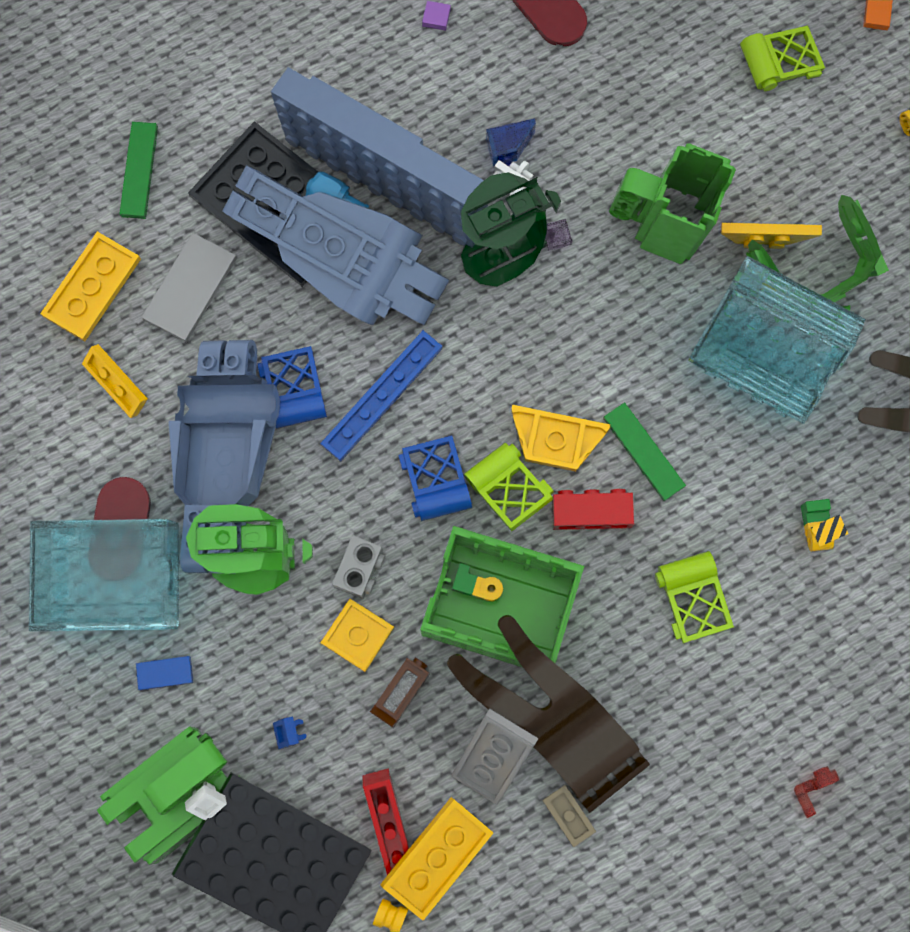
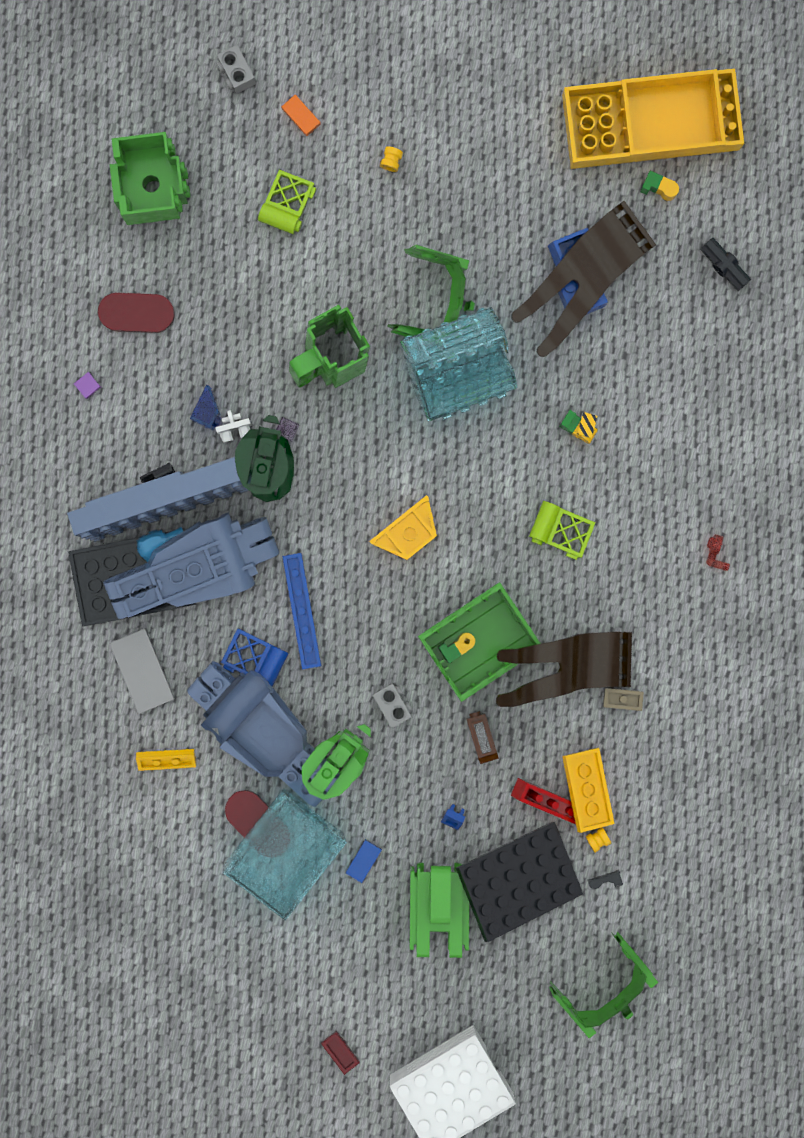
camera: 55 degrees left, 10 degrees up
(90, 286) = (94, 729): yellow plate -> none
(138, 170) = (41, 644): green tile -> none
(205, 801) = (462, 894): white tile -> none
(357, 635) = (429, 735): yellow tile -> none
(440, 498) = (390, 626): blue piece -> none
(494, 756) = (561, 716): light grey tile -> none
(498, 468) = (400, 580): lime piece -> none
(592, 510) = (467, 546): red brick -> none
(644, 452) = (457, 488): green tile -> none
(769, 234) = (395, 306): yellow wing -> none

